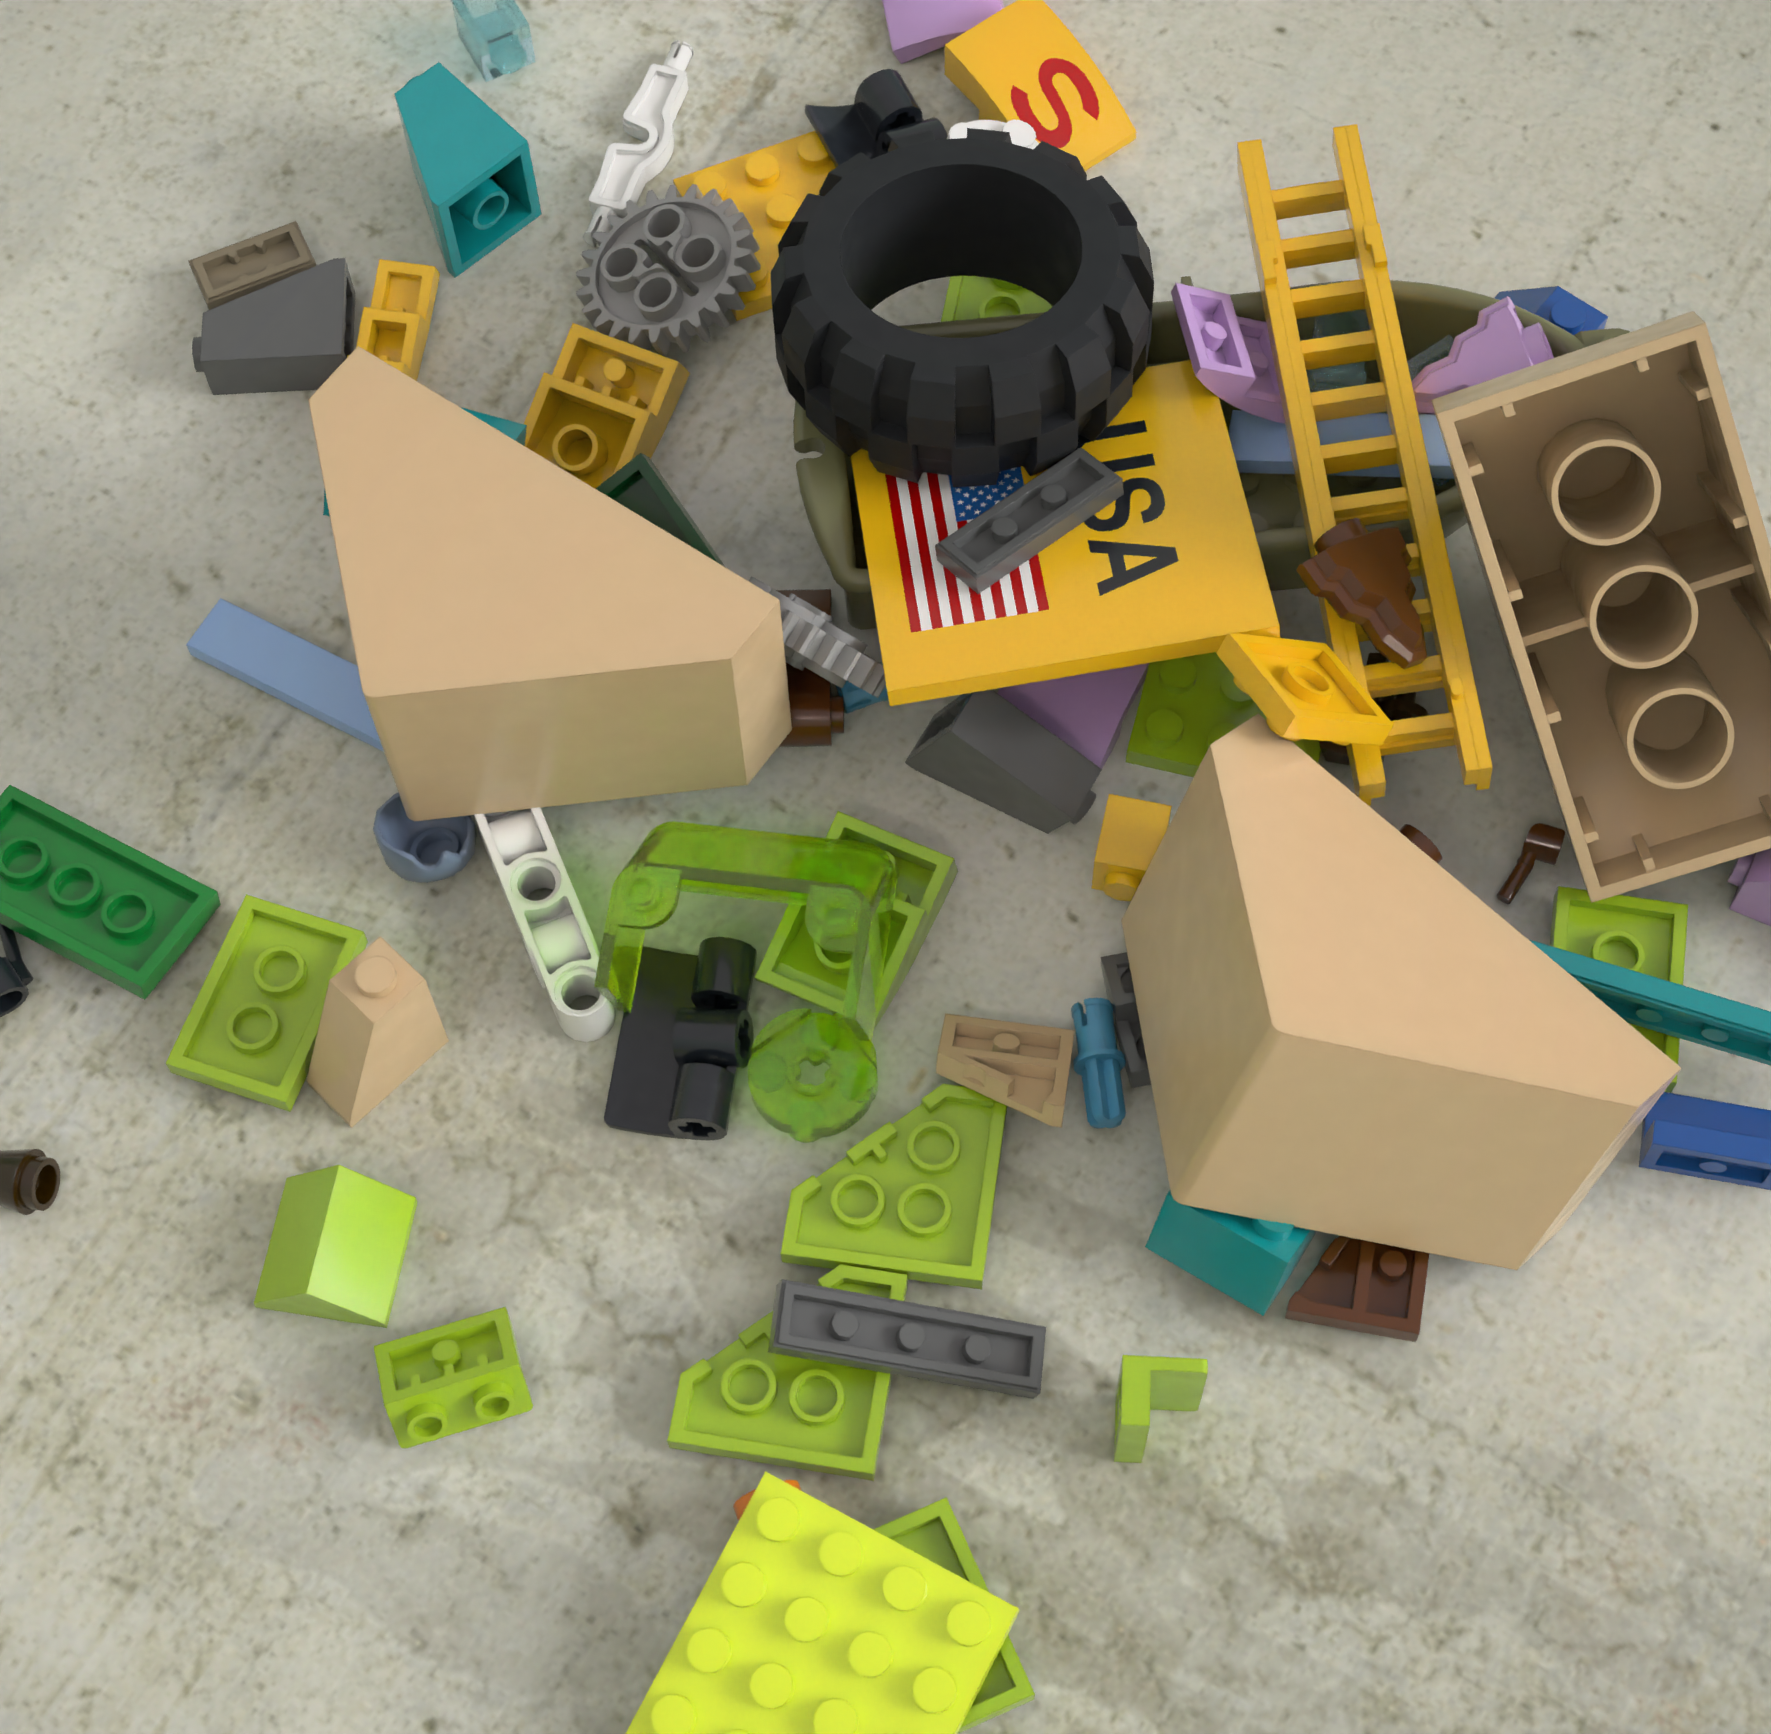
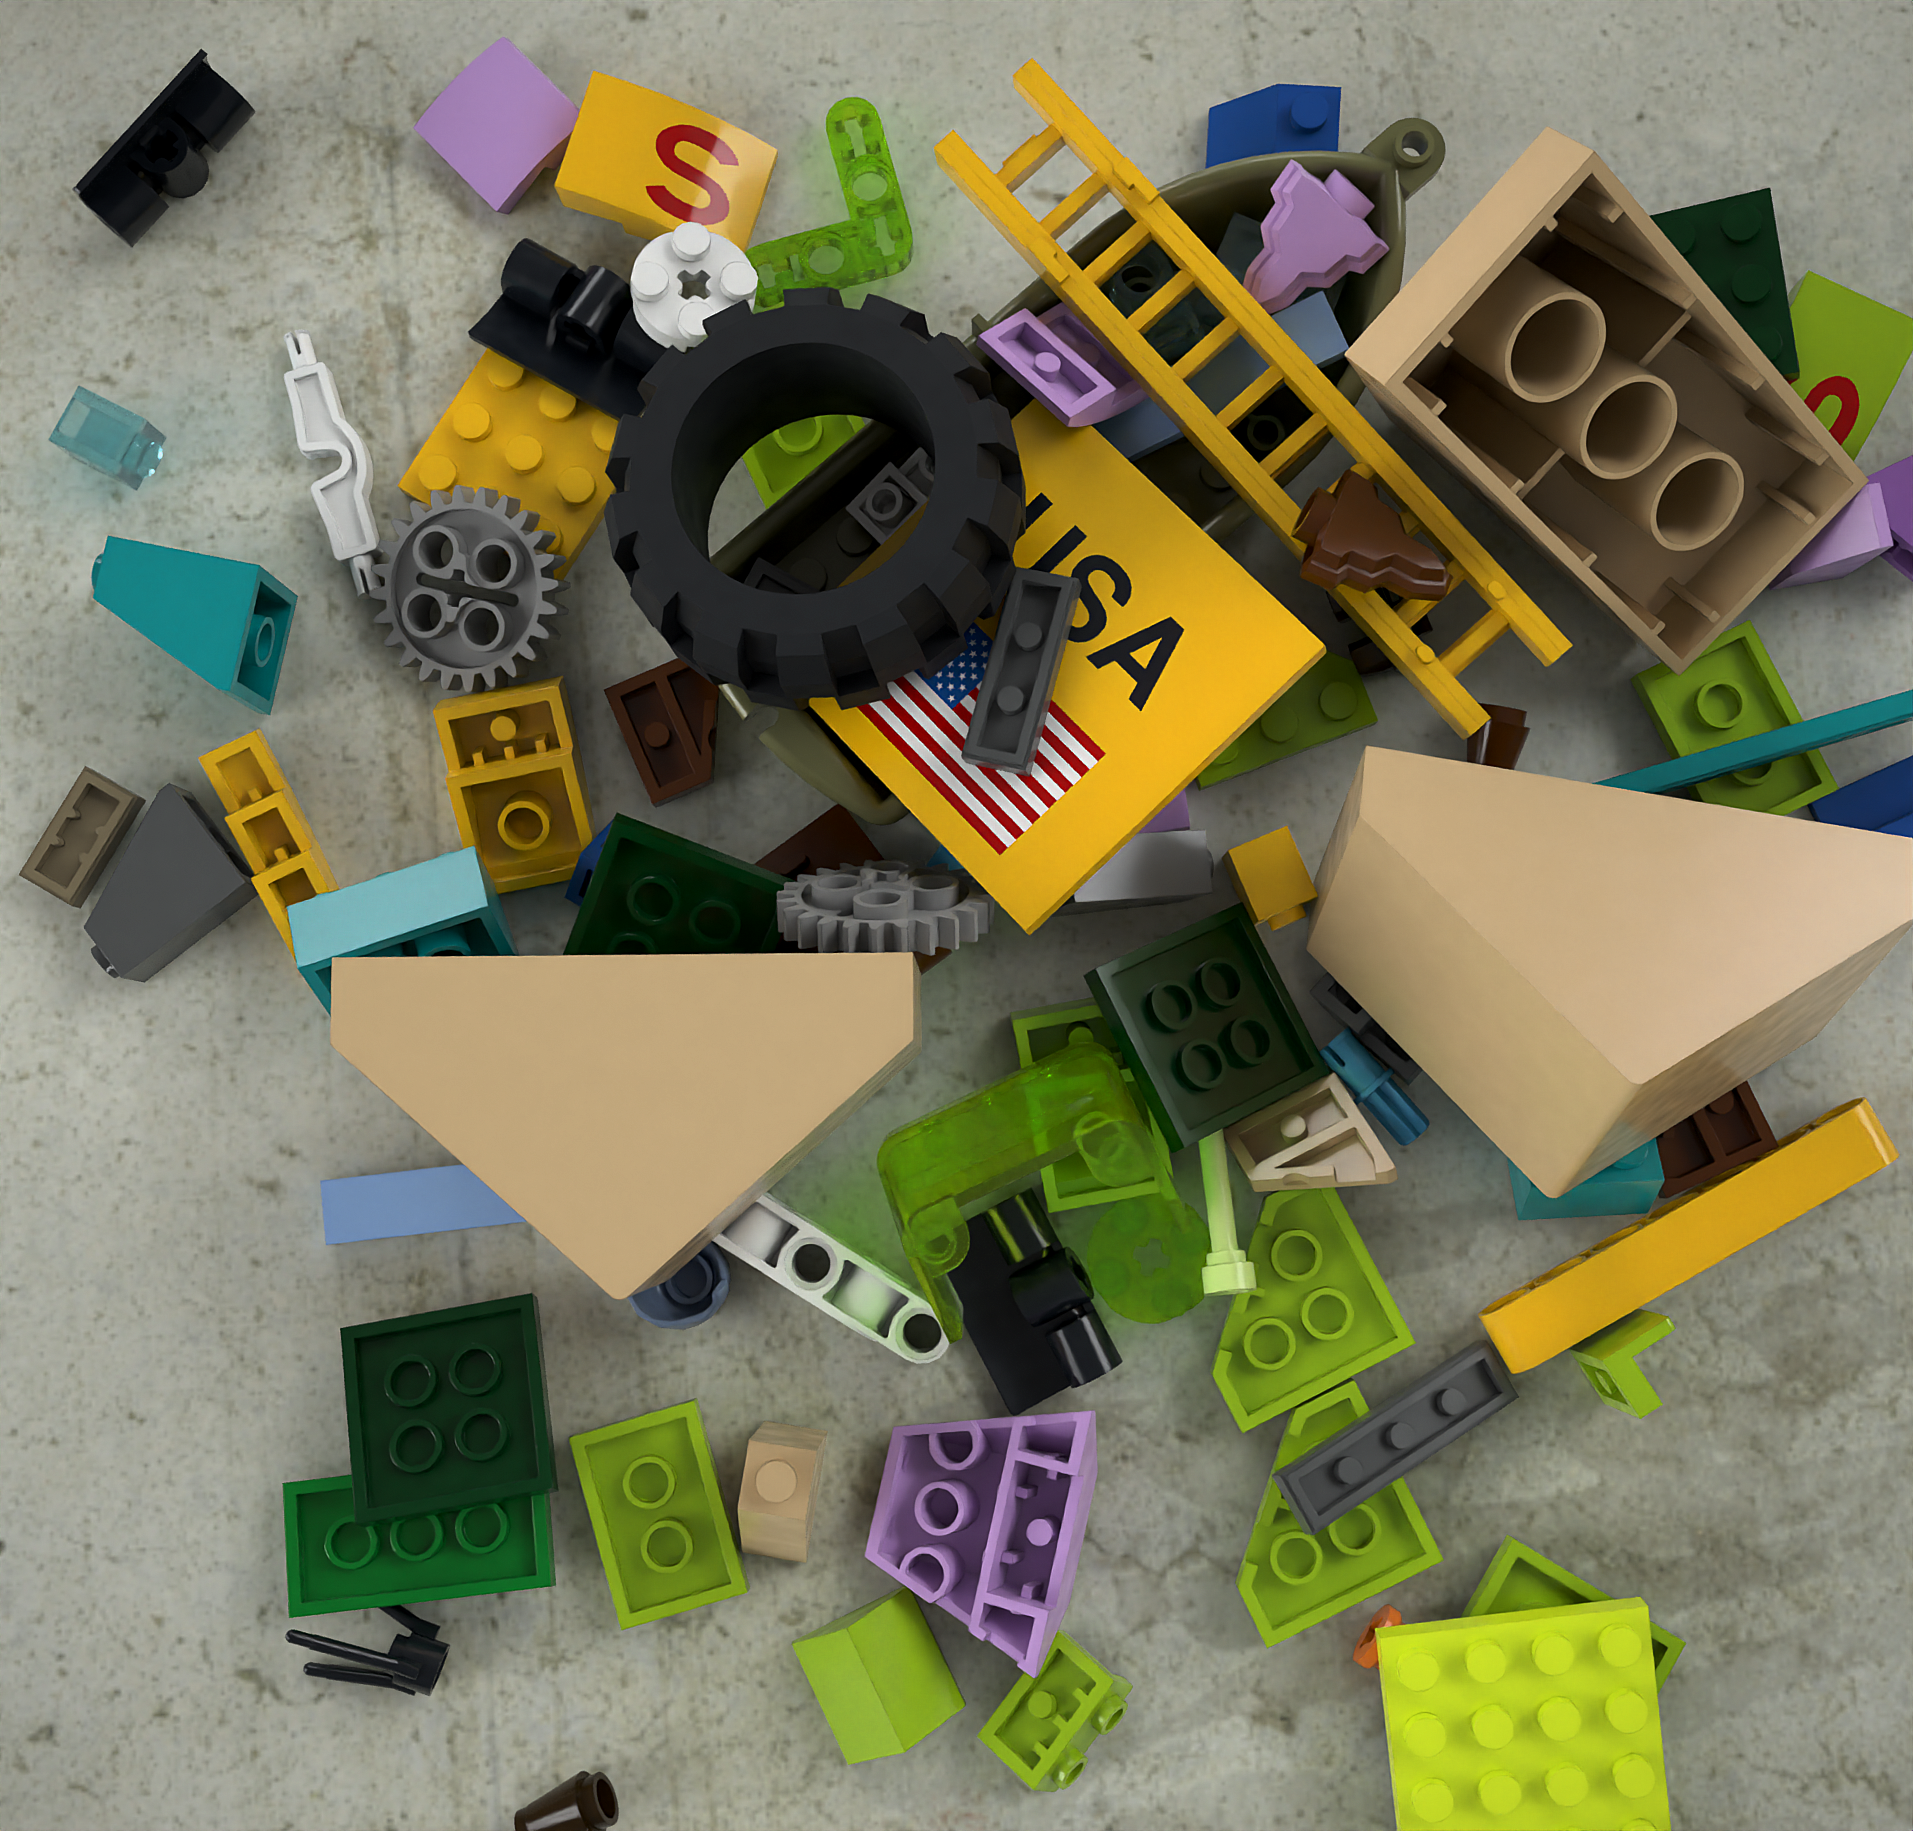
camera: 30 degrees left, 20 degrees up
(174, 810) = (447, 1410): none -> dark green plate
(526, 1181) = (990, 1522): none -> lavender wedge
(739, 455) = (669, 728): none -> reddish brown wing
(865, 1108) = (1226, 1266): none -> yellowish green piece
(991, 912) = (1206, 1026): none -> dark green plate
(1156, 216) = (852, 237): none -> clear neon green beam
(1297, 1355) = (1687, 1235): none -> yellow beam
(1304, 690) = (1384, 691): yellow plate -> none
(1541, 844) = (1588, 641): reddish brown hand -> none

